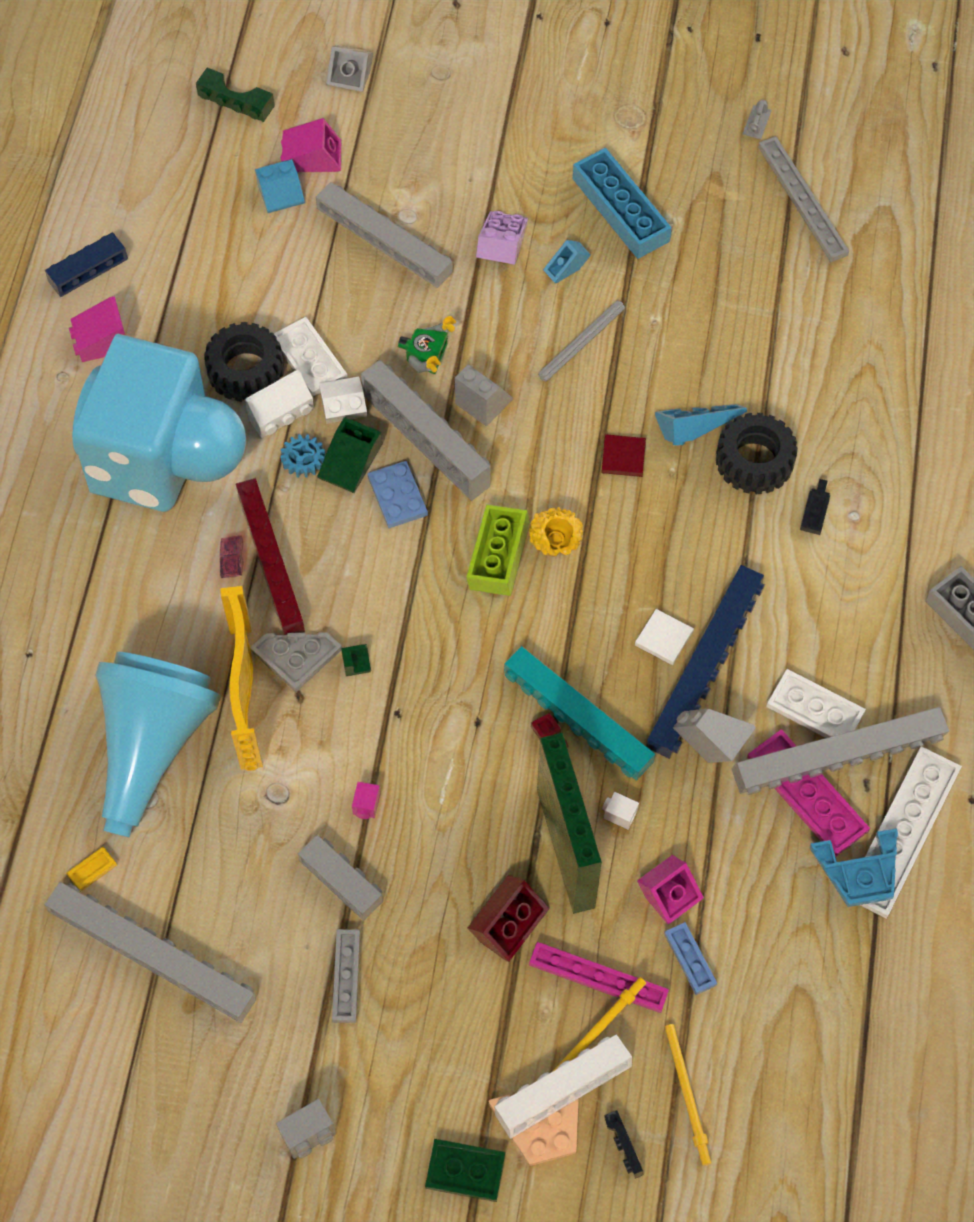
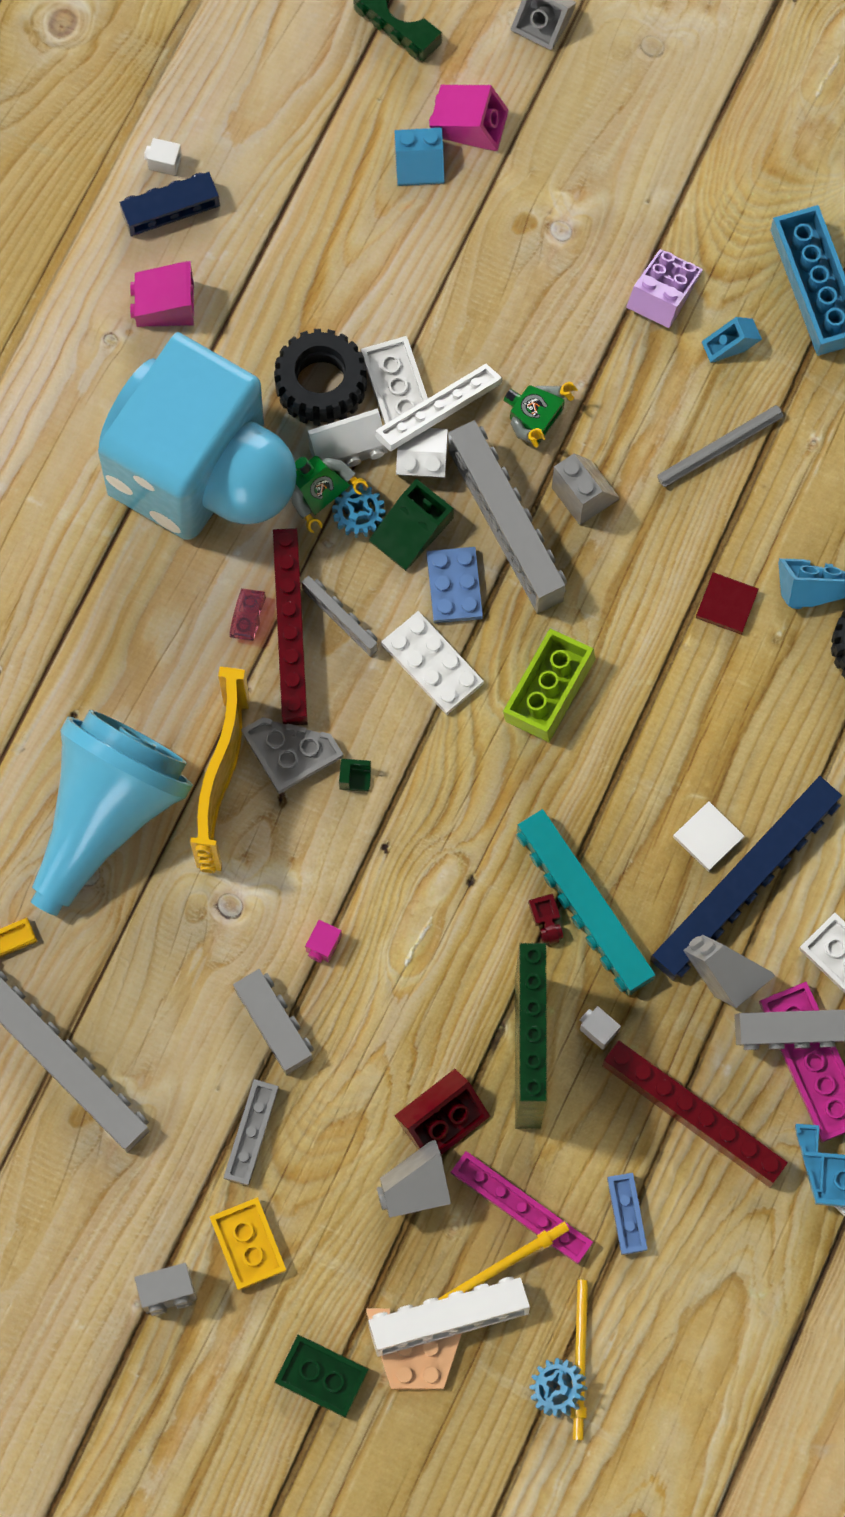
camera: 15 degrees right, 10 degrees up
(72, 231) = (163, 156): none -> white brick
(265, 441) = (319, 484): none -> torso
(305, 537) = (333, 608): none -> light grey plate
(346, 361) = (438, 407): none -> white plate
(368, 1072) = (248, 1243): none -> yellow plate
(384, 234) = (525, 250): light grey brick -> none
(396, 558) = (432, 662): none -> white plate
(502, 977) = (415, 1183): none -> light grey slope
(556, 531) = (620, 680): yellow hair -> none
(623, 1143) = (495, 1392): black hinge -> none
(670, 888) = (628, 1130): dark pink slope -> none
(673, 1112) = (562, 1376): none -> dark azure gear
(723, 860) = (694, 1114): none -> dark red brick

